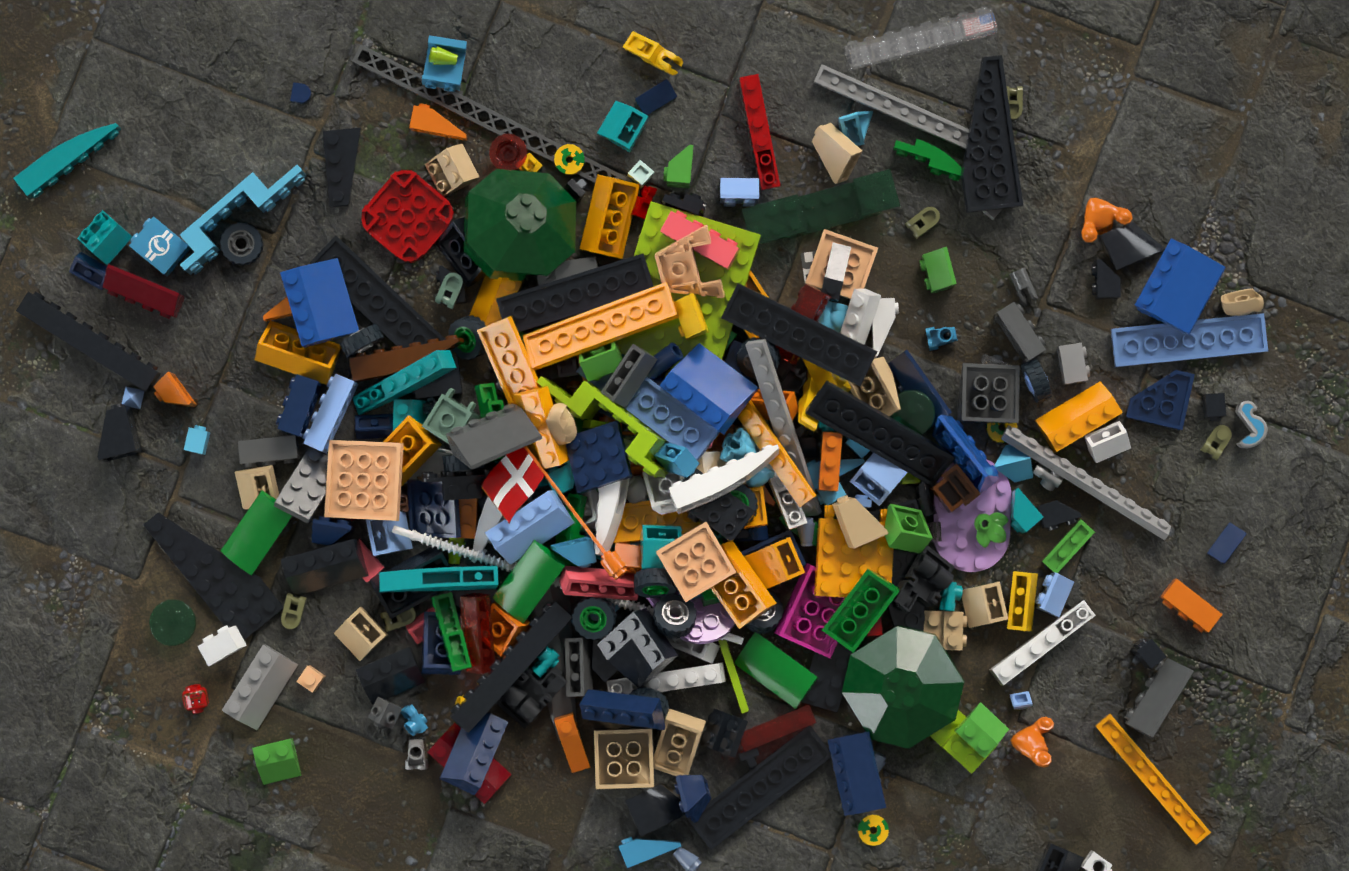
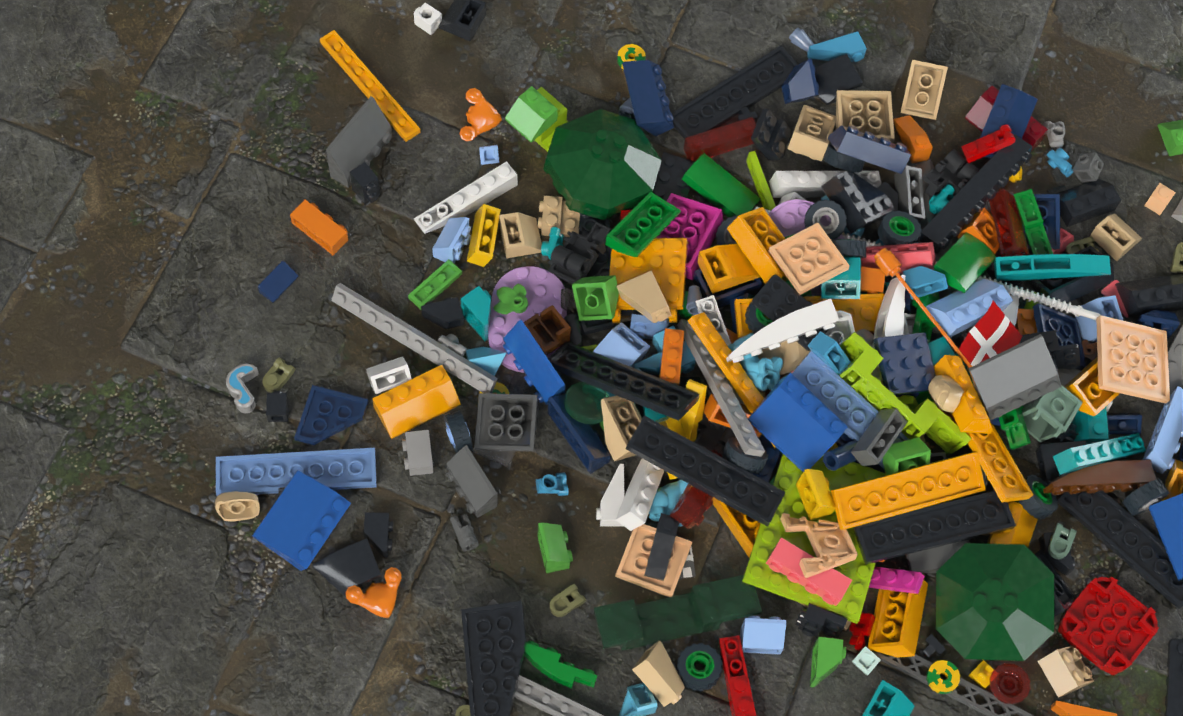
camera: 175 degrees right, 20 degrees down
(496, 721) = (988, 144): none -> red plate
(556, 802) = (923, 89): none -> tan slope
(610, 245) = (896, 580): none -> dark pink plate
(791, 172) = (702, 655): none -> black wheel

